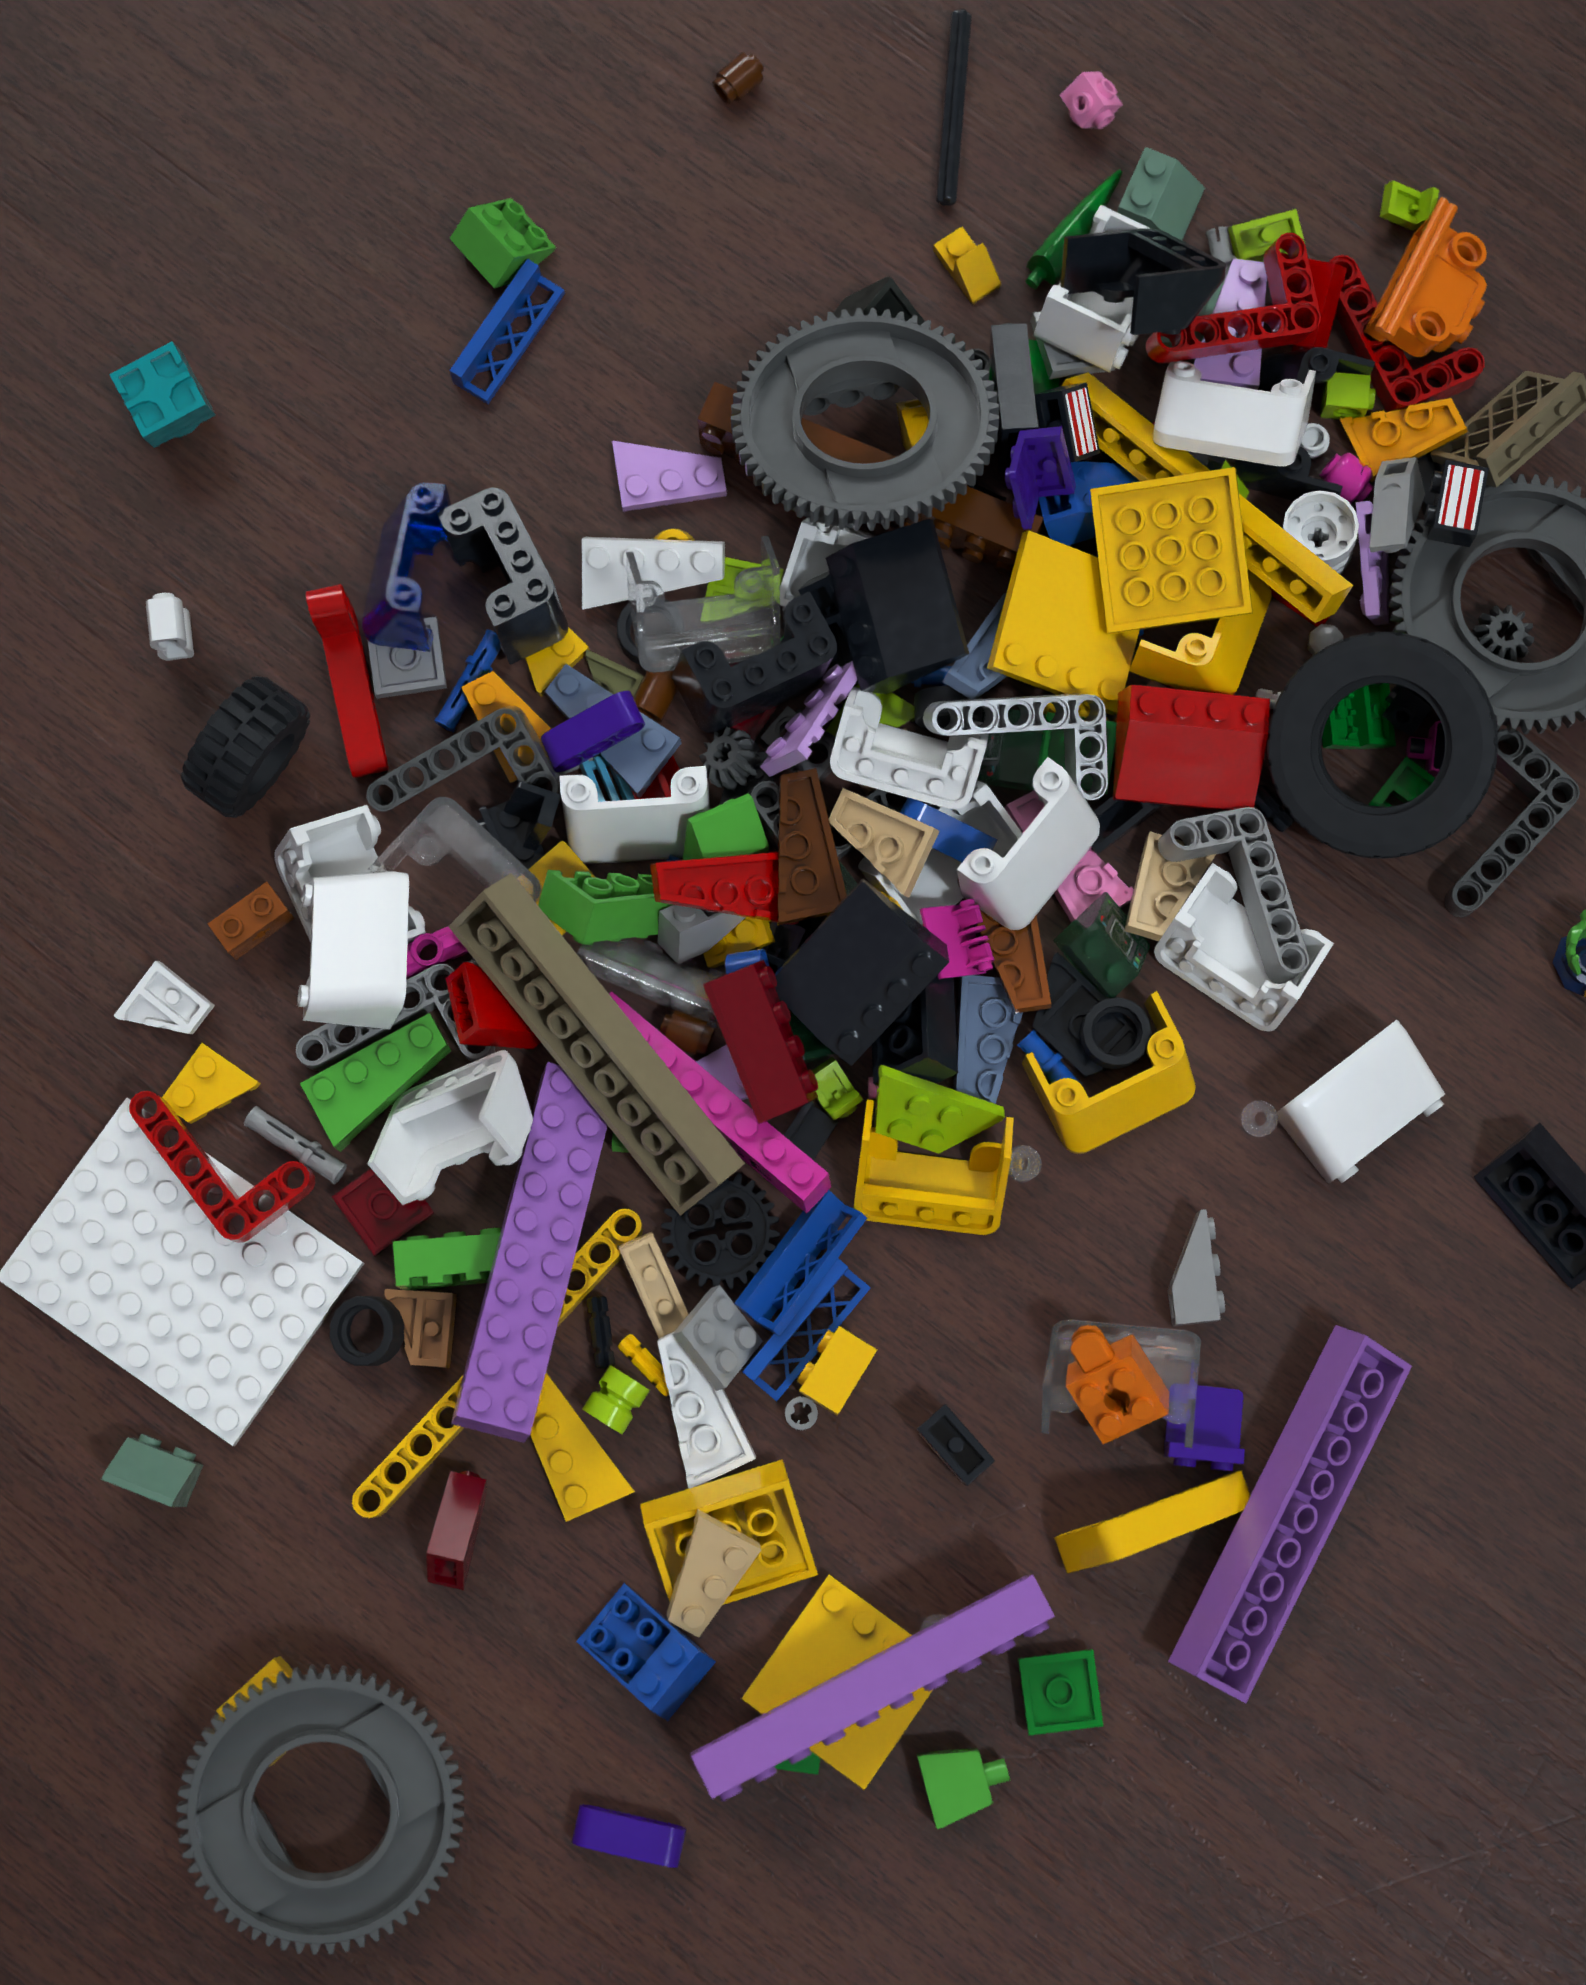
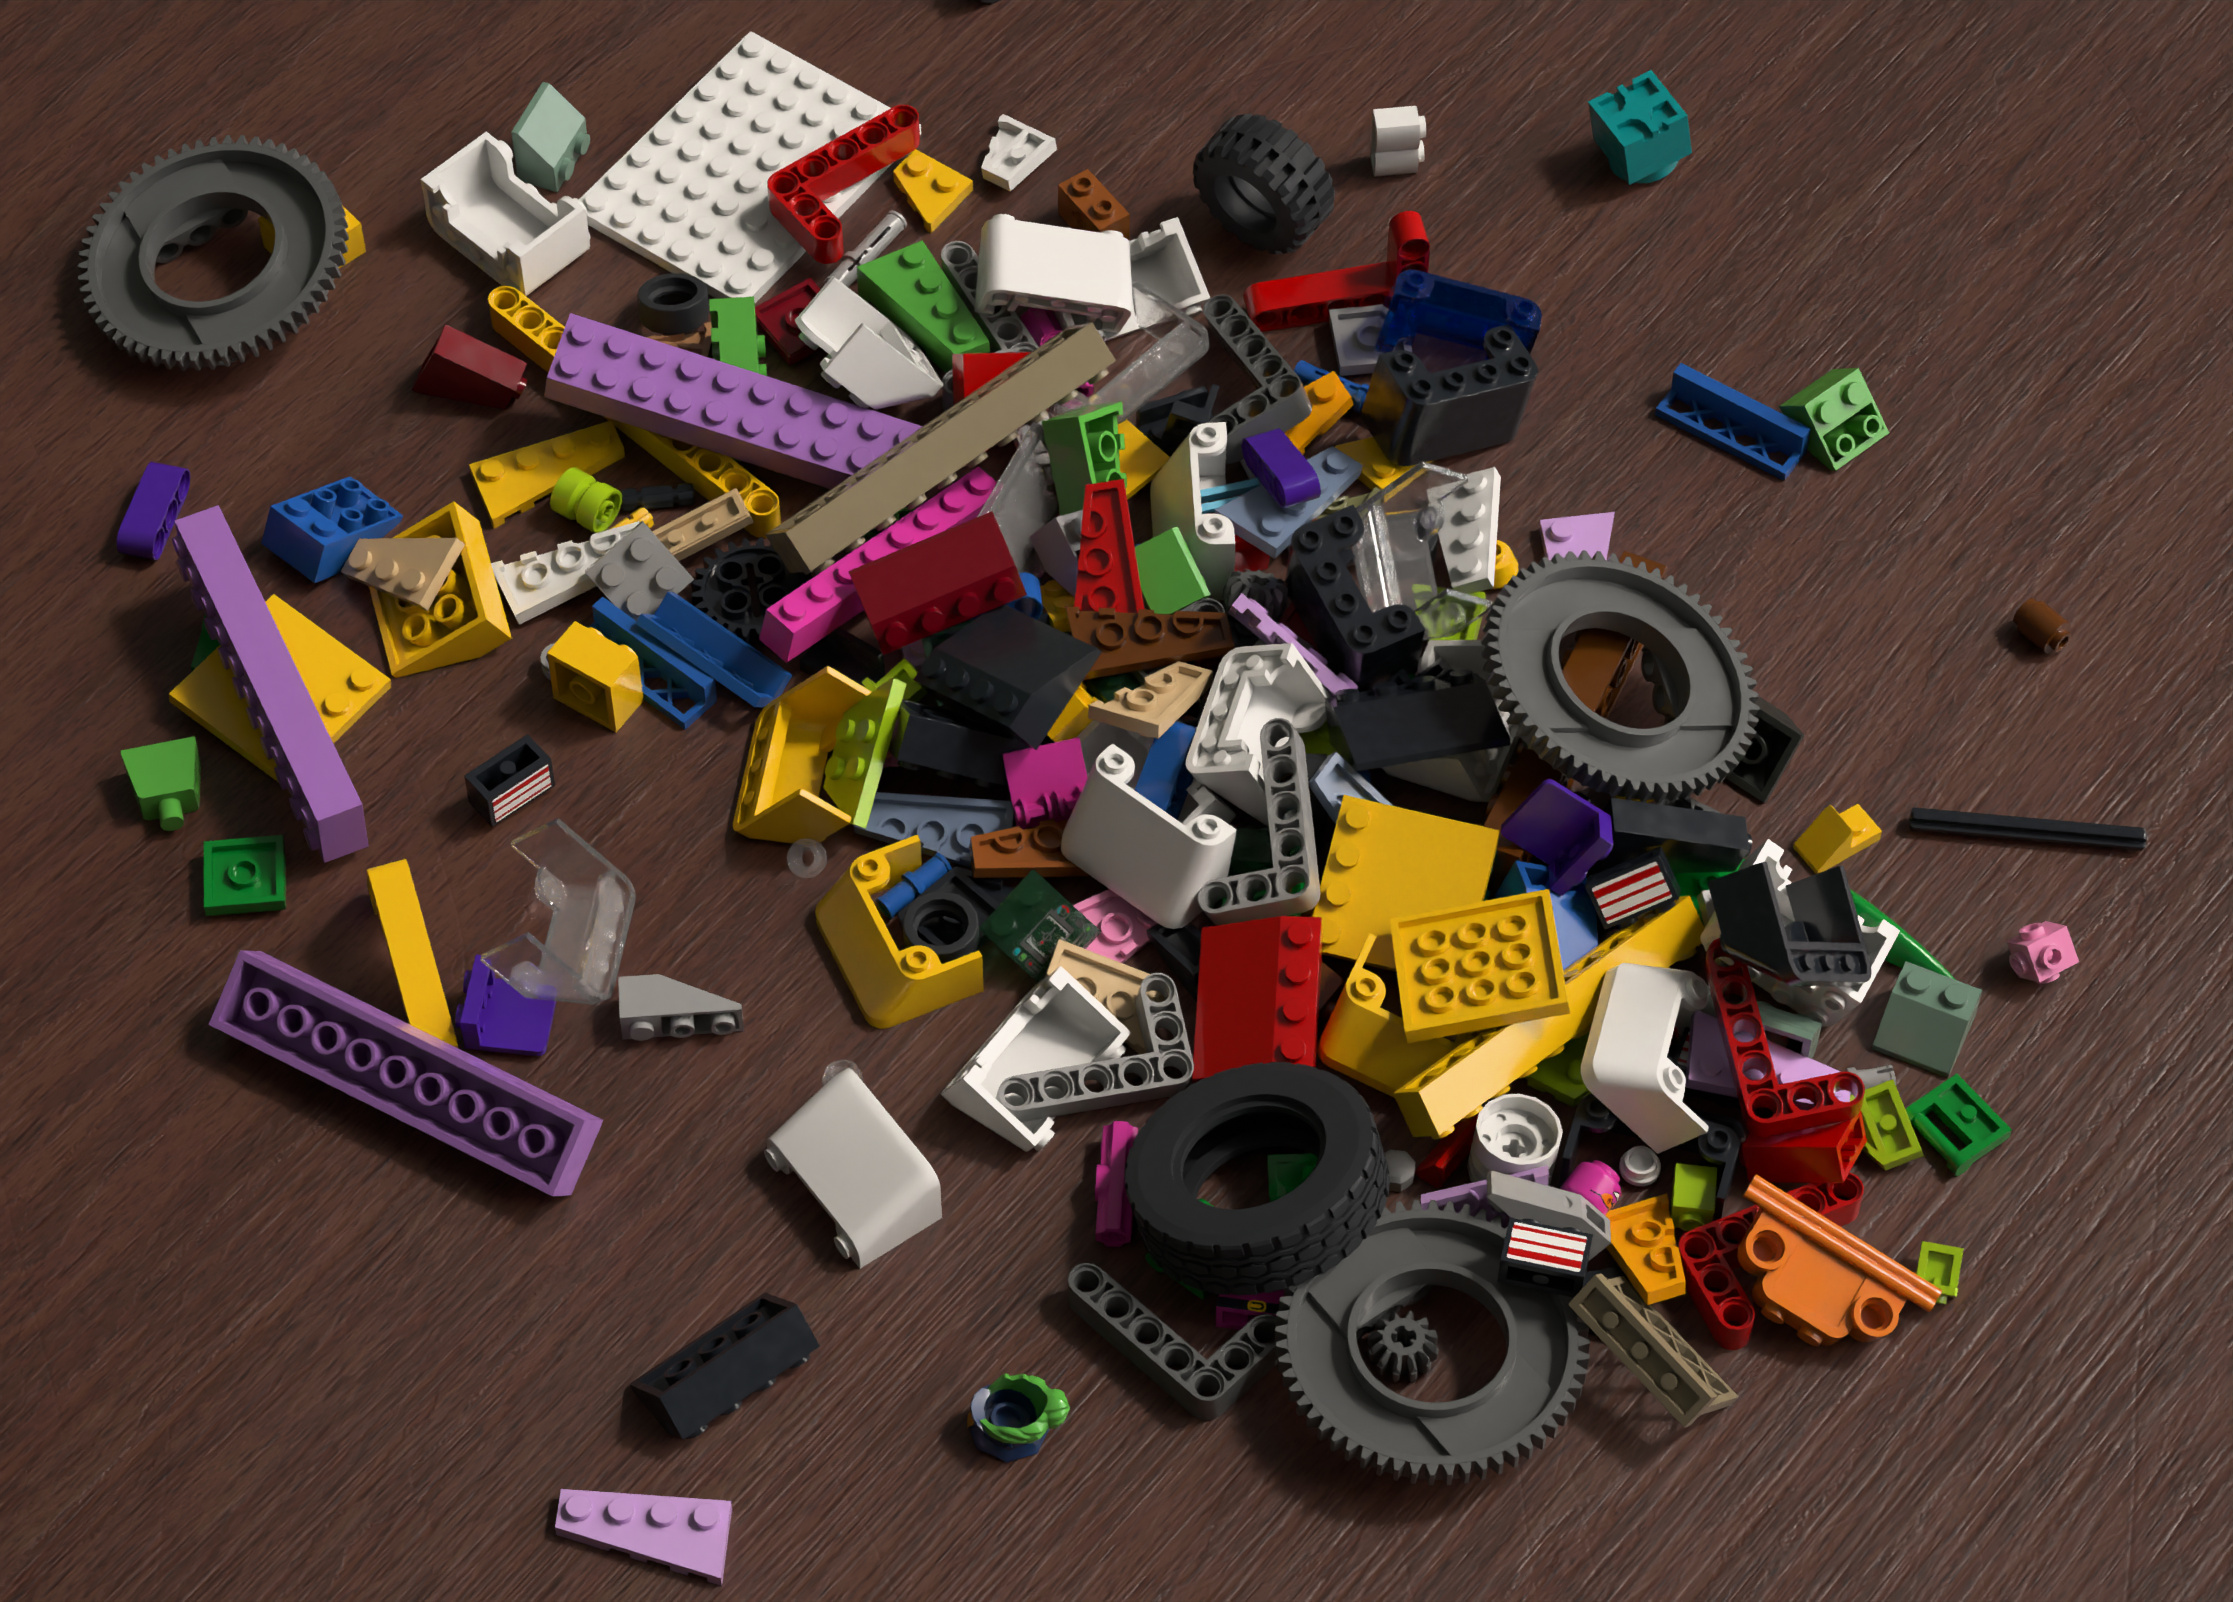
camera: 90 degrees right, 25 degrees down
(260, 1508) = (500, 219): none -> white windscreen
(1121, 1371) = (561, 903): orange brick -> none
(1254, 173) = (1965, 1116): none -> green plate
(1356, 875) = (1114, 1211): none -> dark pink piece

